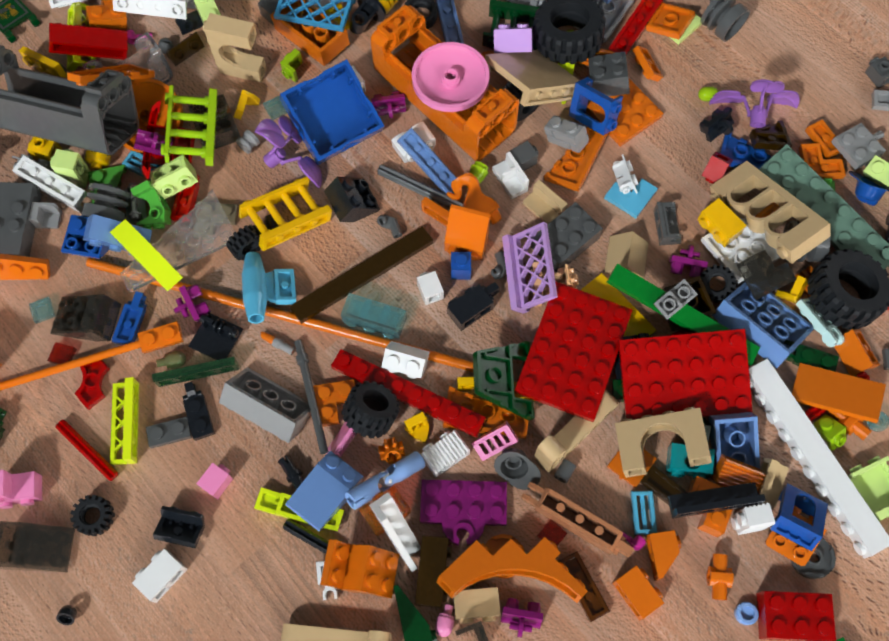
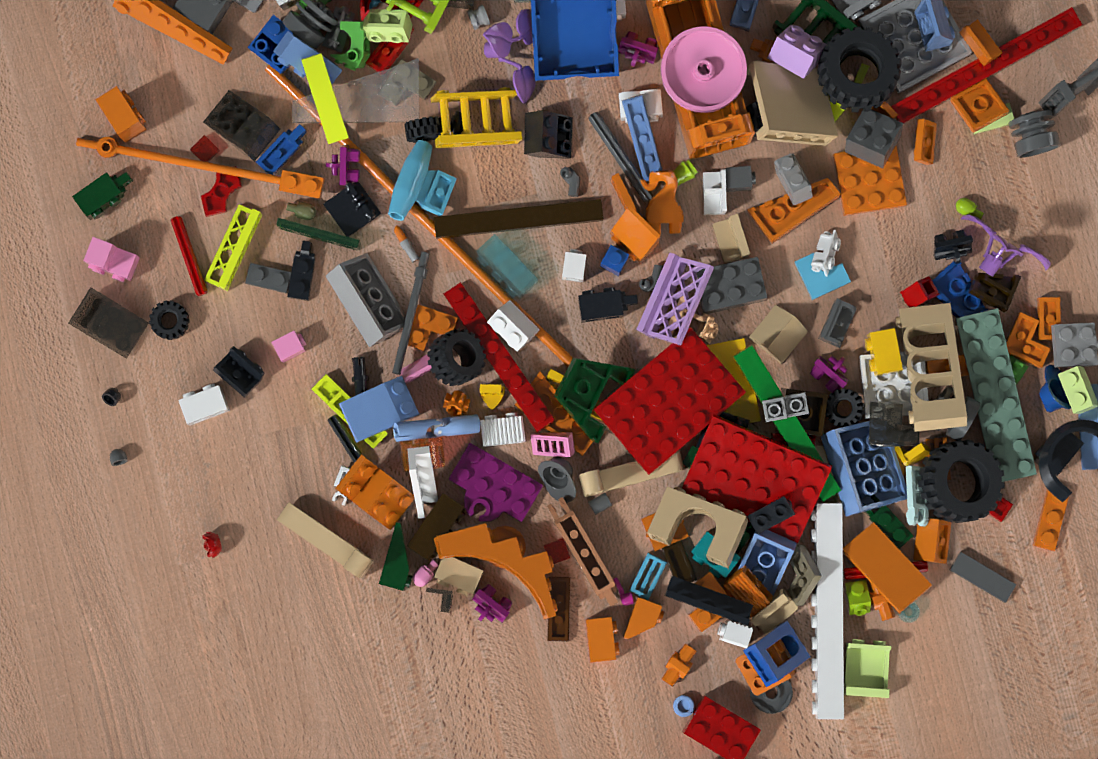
camera: 25 degrees right, 15 degrees up
(42, 310) = (205, 94): clear light blue tile -> none
(582, 94) = (831, 151): blue panel -> none
(720, 395) = (771, 514): none -> black hinge
(780, 435) = (807, 575): none -> dark tan plate

